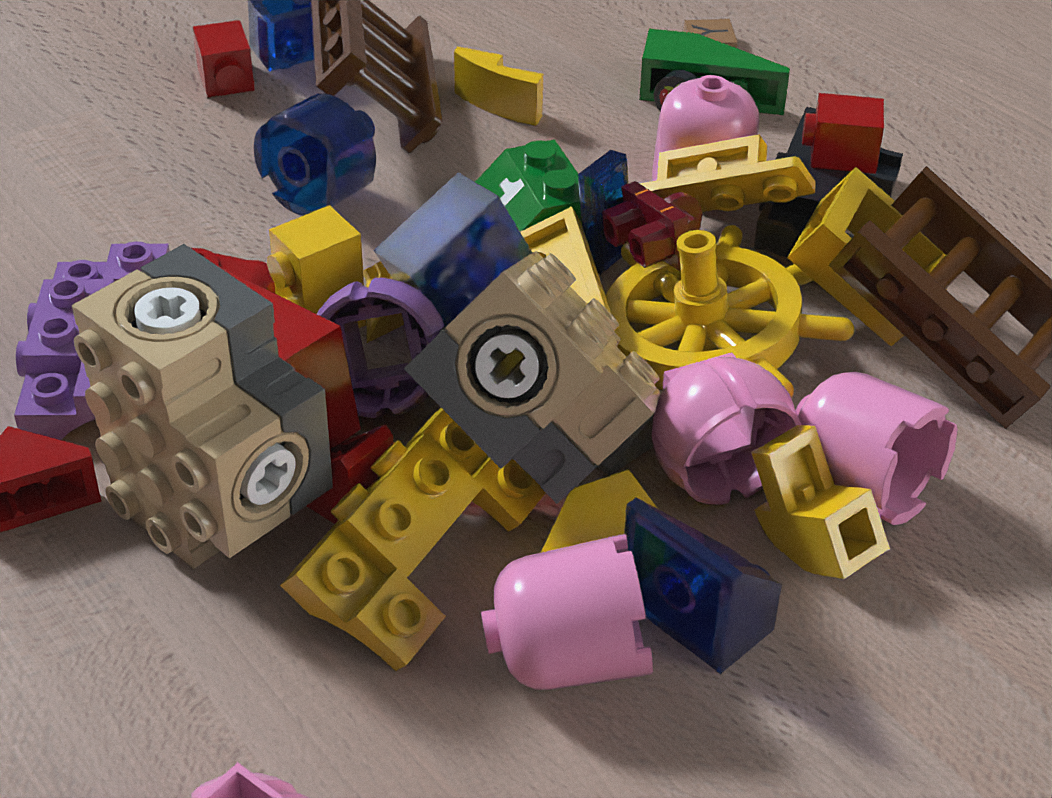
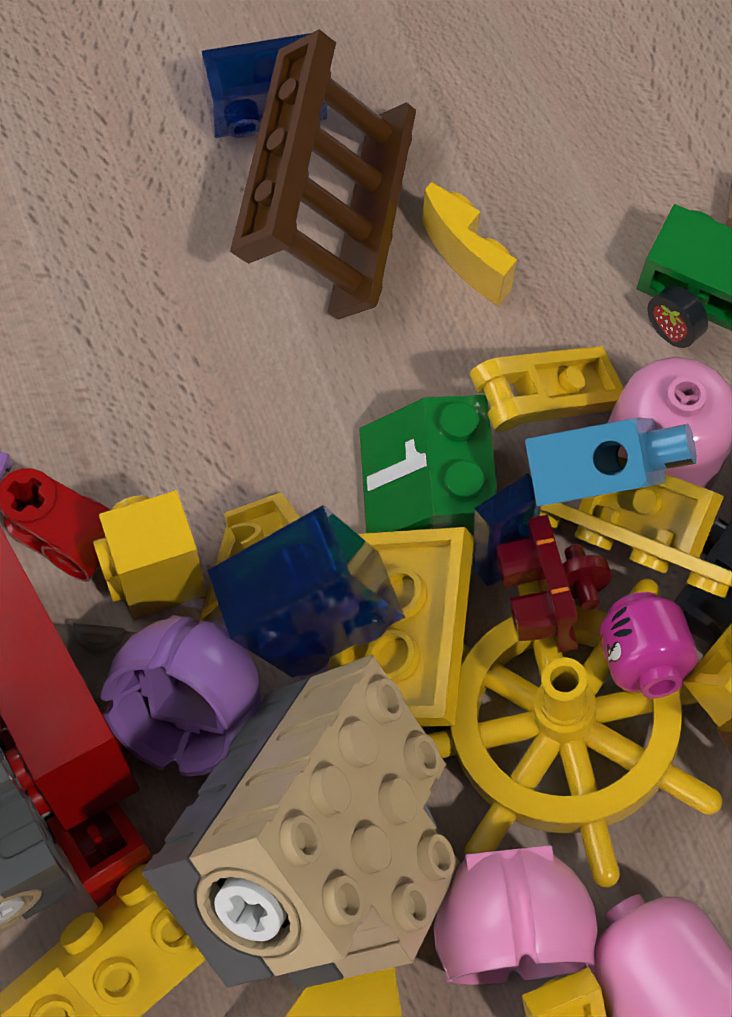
camera: 15 degrees right, 25 degrees up
(223, 58) = (162, 115): red brick -> none
(316, 153) = (214, 335): clear blue brick -> none
(595, 133) = (547, 386): none -> yellow plate
(668, 126) = (587, 464): none -> dark azure torso
(748, 234) = (647, 645): none -> dark pink head

